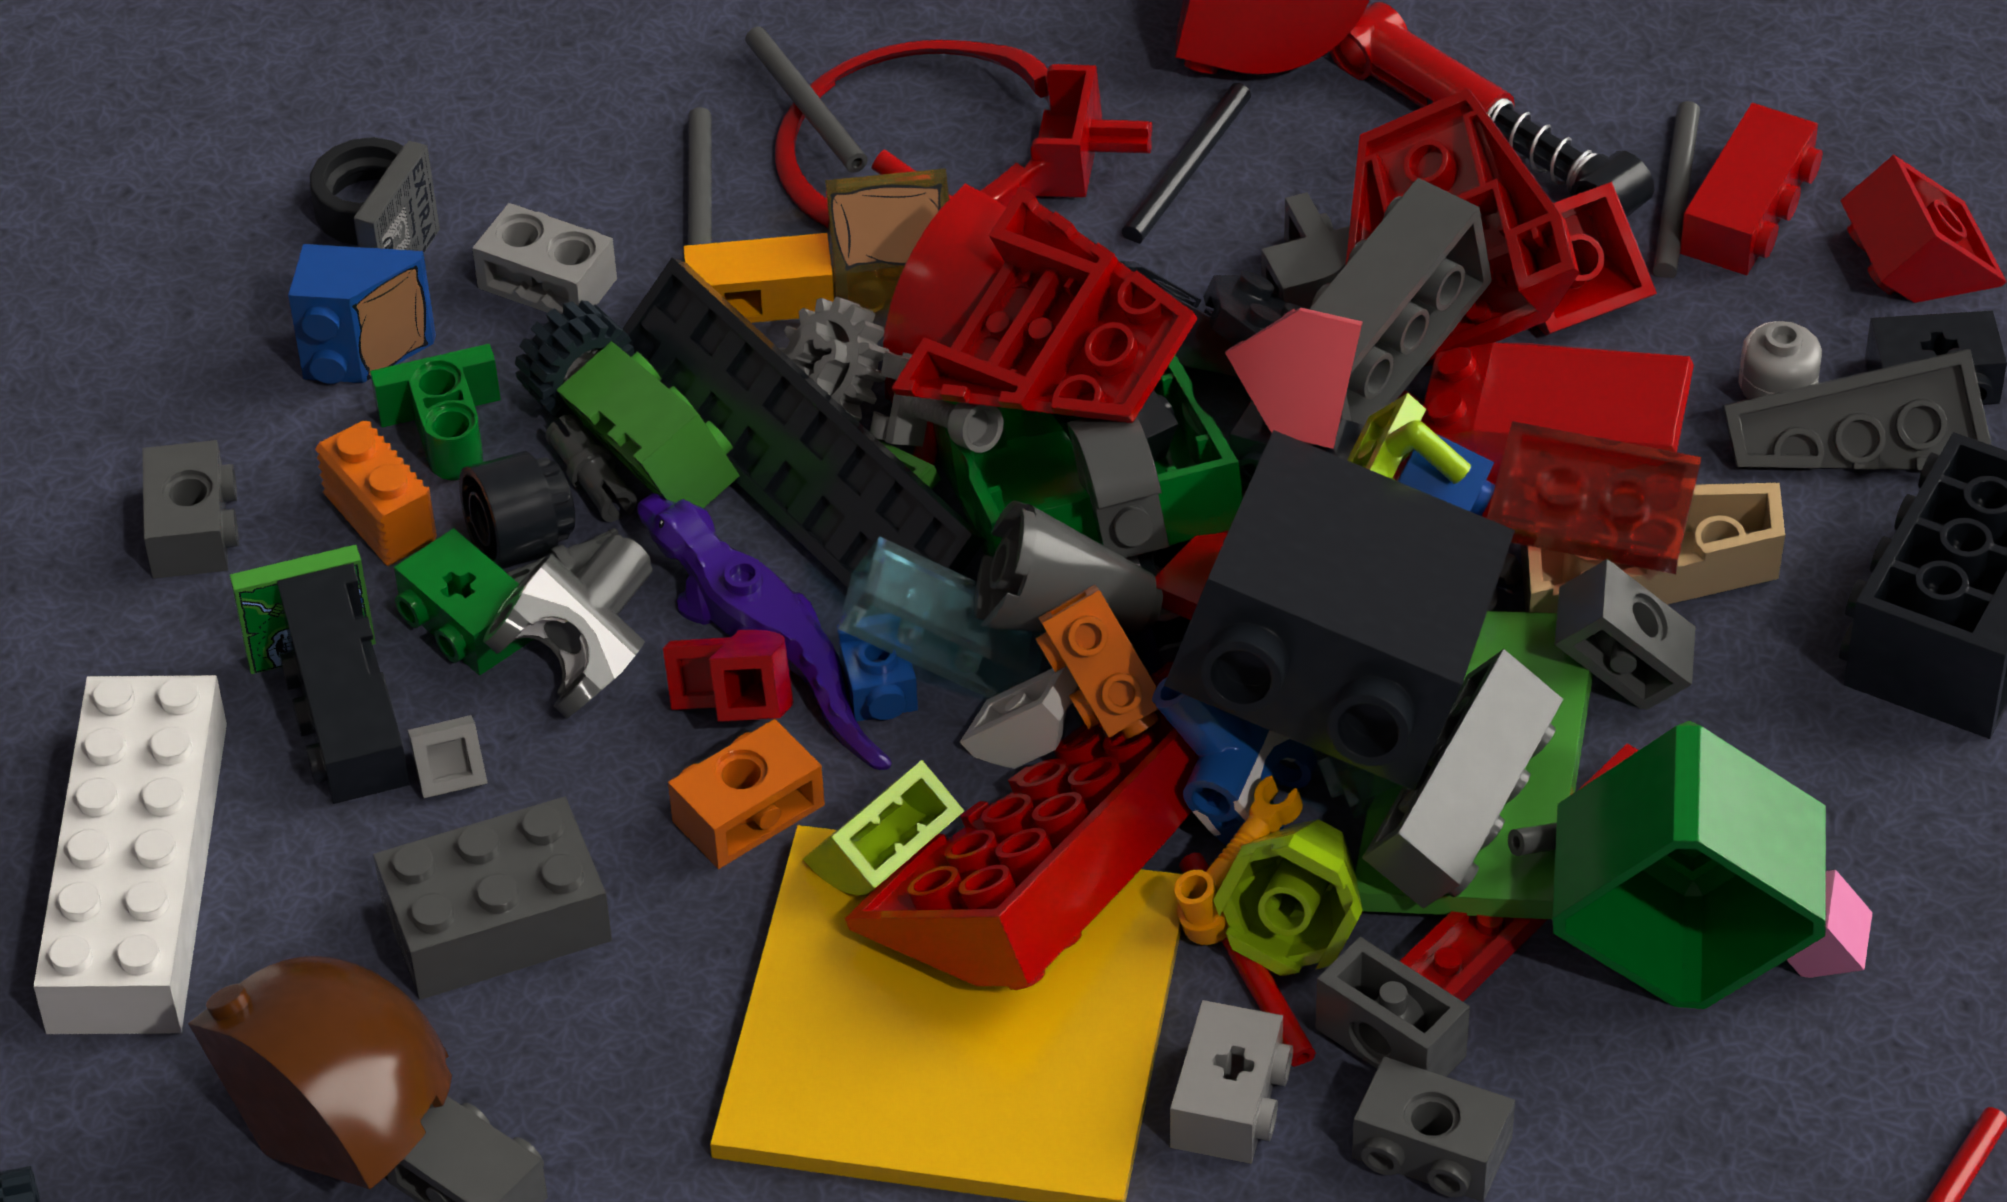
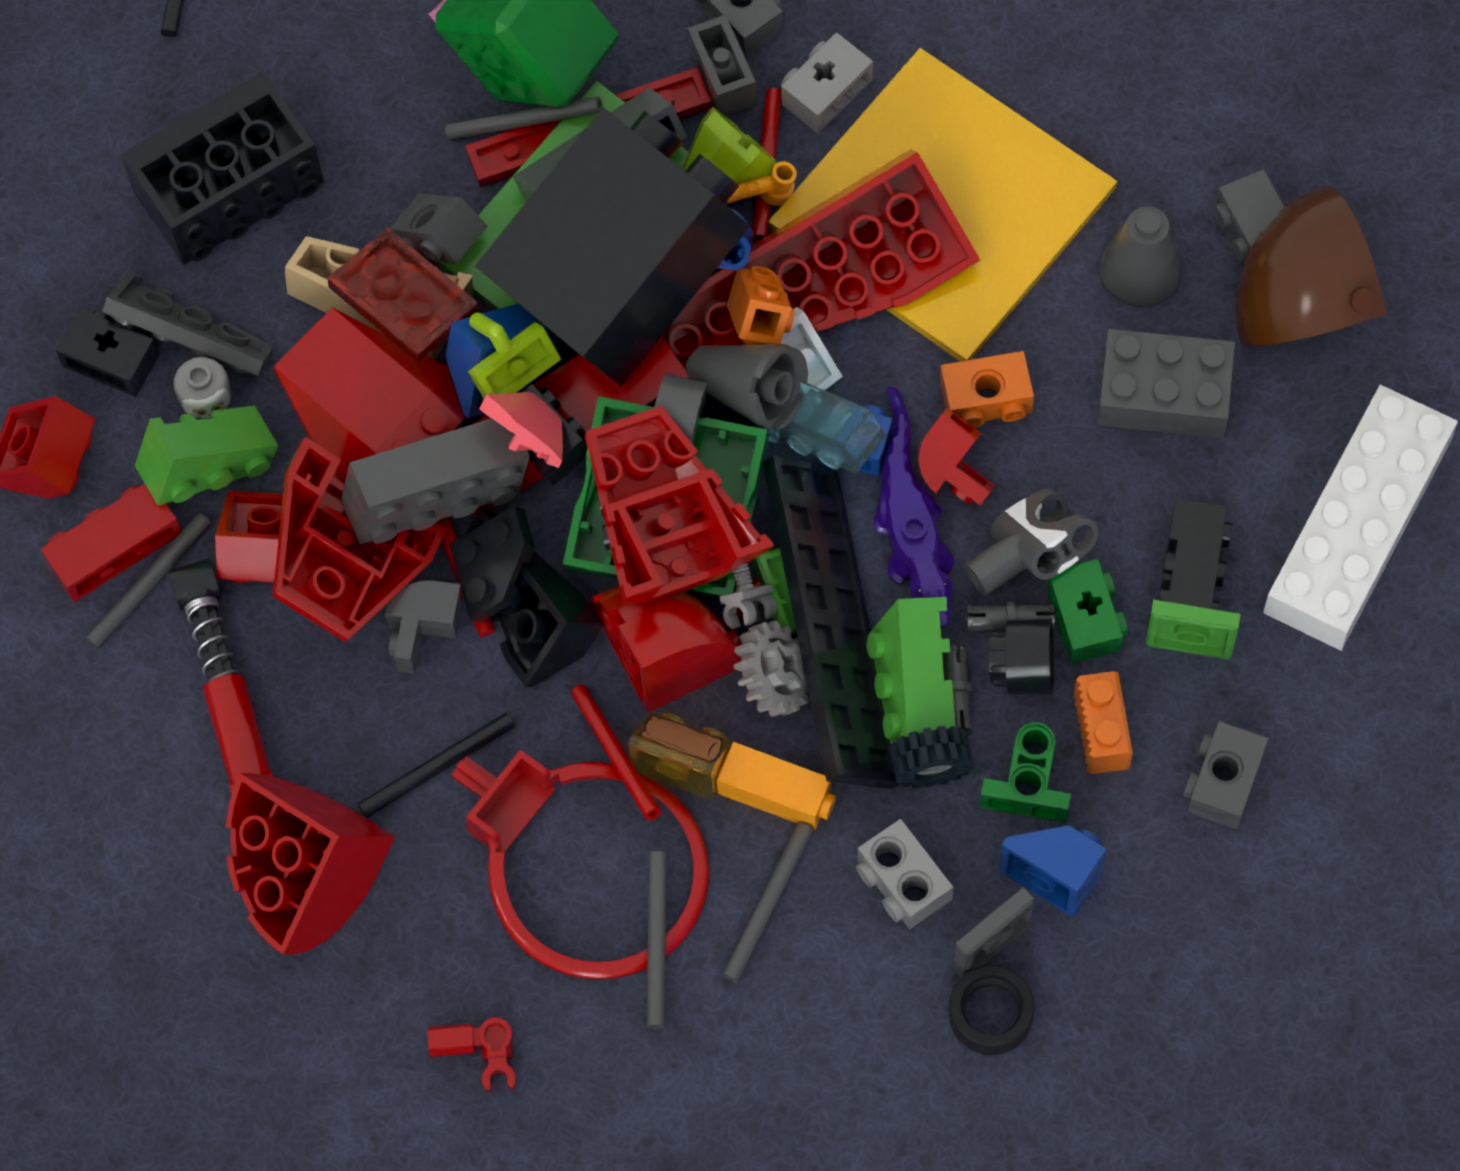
camera: 150 degrees left, 20 degrees up
(447, 756) = (1146, 502): light grey tile -> none
(610, 1035) = (1142, 260): none -> dark grey cone
(885, 832) = (927, 311): lime brick -> none
(1707, 265) = (203, 453): none -> bright green wedge

